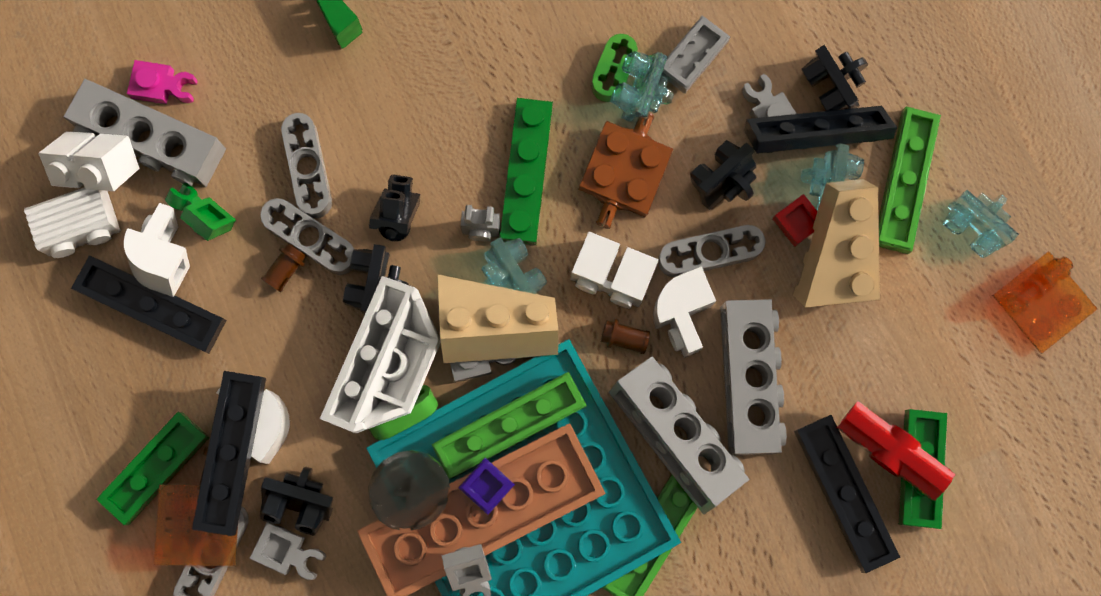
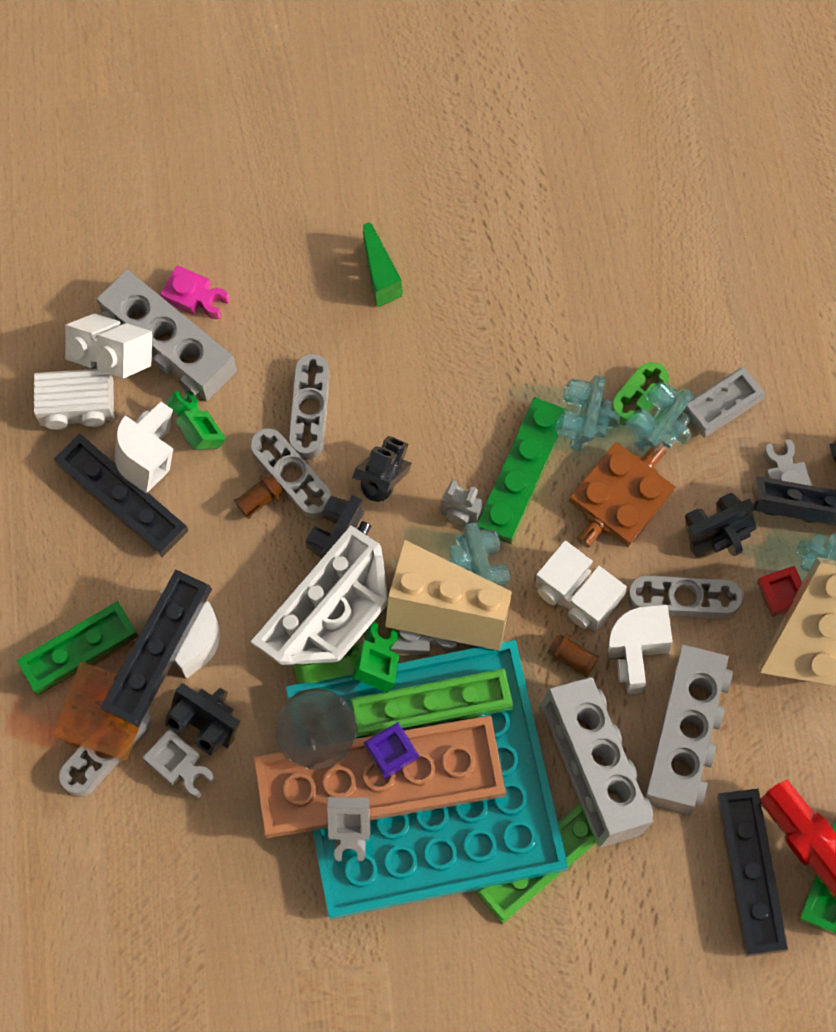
camera: 25 degrees right, 10 degrees down
(444, 401) = (375, 661): none -> green plate
(576, 99) = (593, 413): none -> clear light blue hips

